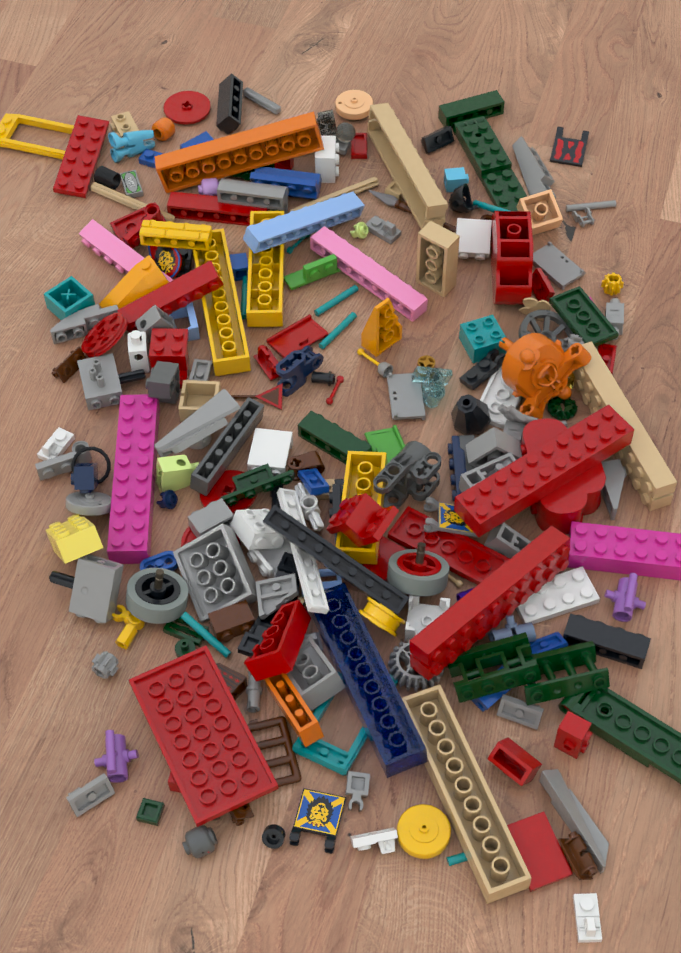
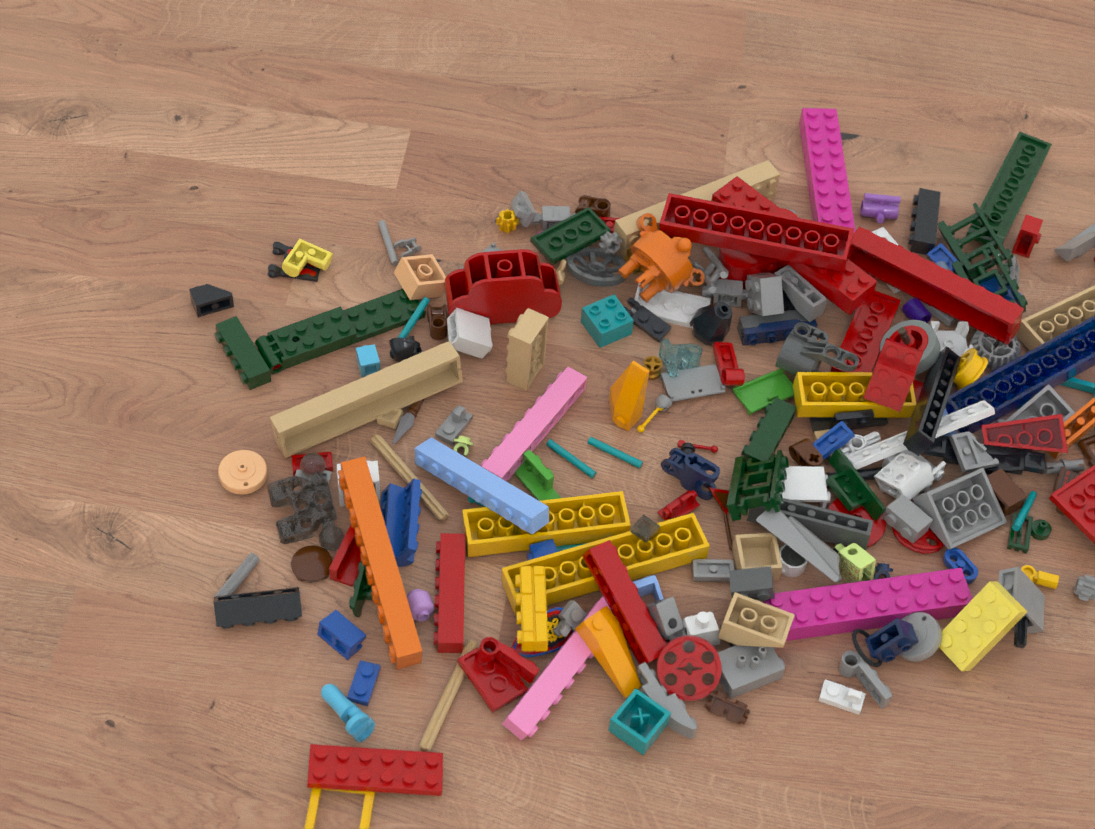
camera: 105 degrees left, 0 degrees up
(107, 177) = (412, 729): black piece -> none
(123, 123) = (314, 727): tan brick -> none
(125, 373) = (755, 623): none -> tan slope
(131, 184) = (413, 704): light grey tile -> none
(156, 595) = (1003, 548): wheel -> none
(163, 129) = (309, 681): orange head -> none
(170, 346) = (700, 594): red bracket -> none
(171, 267) = (570, 617): none -> light grey plate
(187, 107) = (241, 660): red piece -> none
(235, 315) = (645, 528): none -> clear smoke plate
(253, 194) = (435, 547): light grey brick -> none
(267, 404) = (745, 474): none -> dark green fence
(296, 336) = (639, 496): red door -> none
(420, 422) = (727, 364): none -> red plate
(437, 139) = (304, 388): black hinge -> none
(447, 519) = (838, 329): flag -> none
(514, 761) = (1062, 274): red brick -> none
(528, 92) = (210, 299): none -> black slope
(532, 167) = (342, 291): light grey wedge -> none
(540, 420) = (757, 232): none -> red brick
(570, 145) = (304, 253): none -> light yellow brick
(617, 291) = (523, 208): none -> light grey hinge
(627, 351) = (600, 206): none -> reddish brown piece

